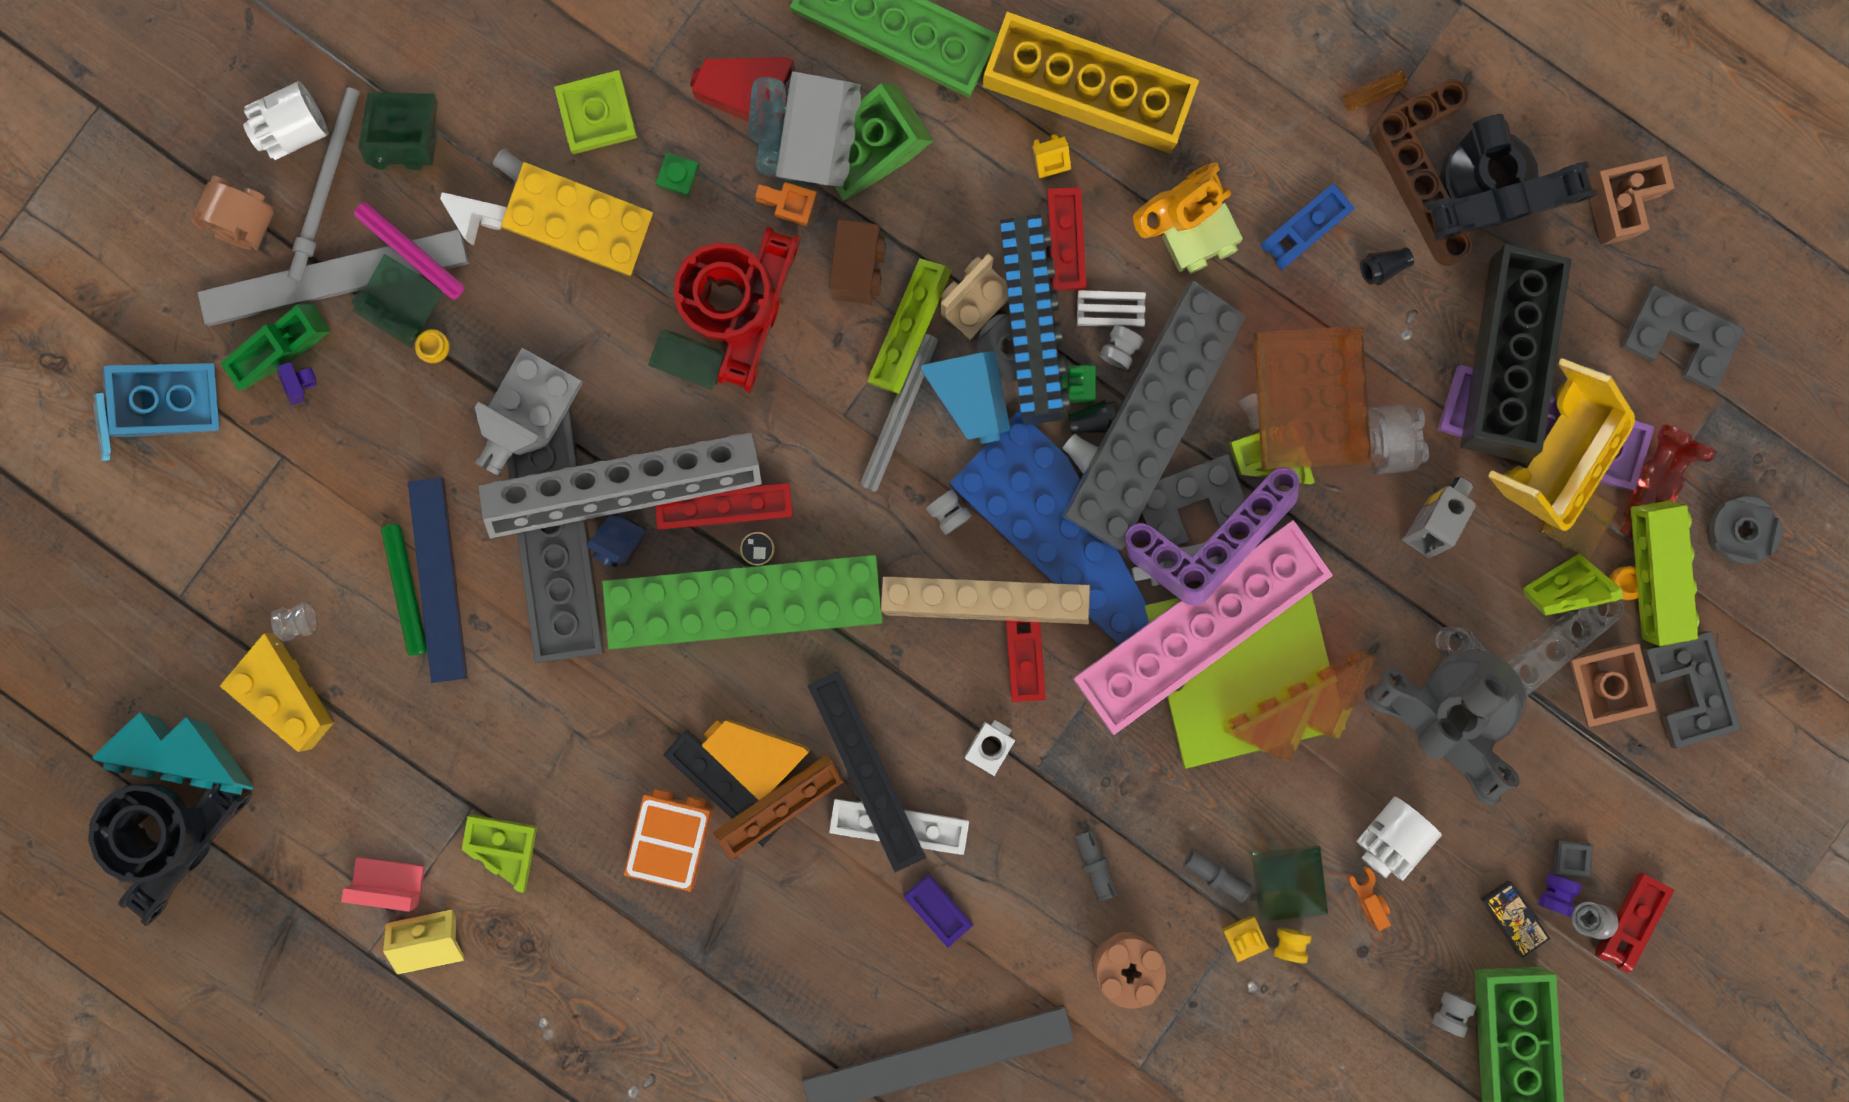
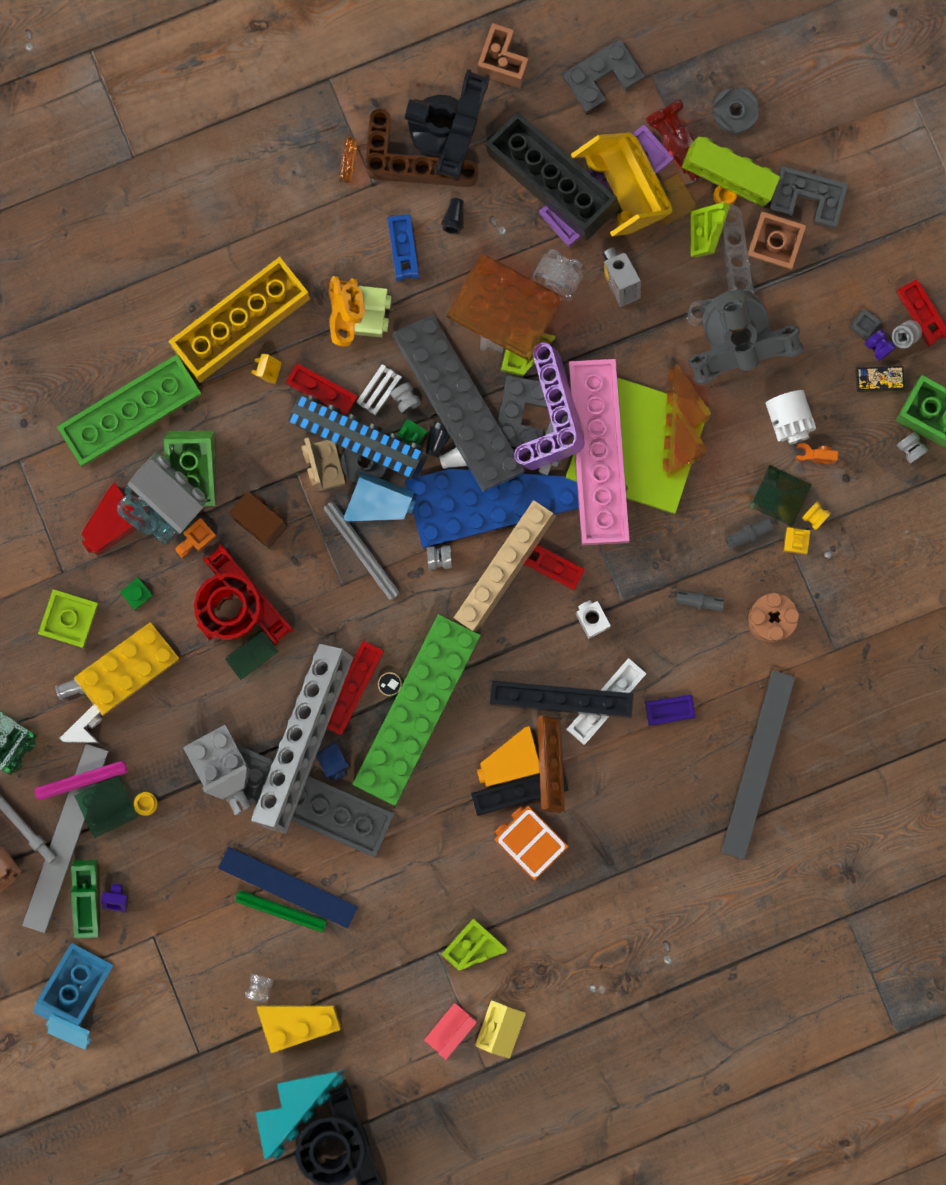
camera: 60 degrees left, 5 degrees down
(909, 326) = (314, 513): lime plate -> none

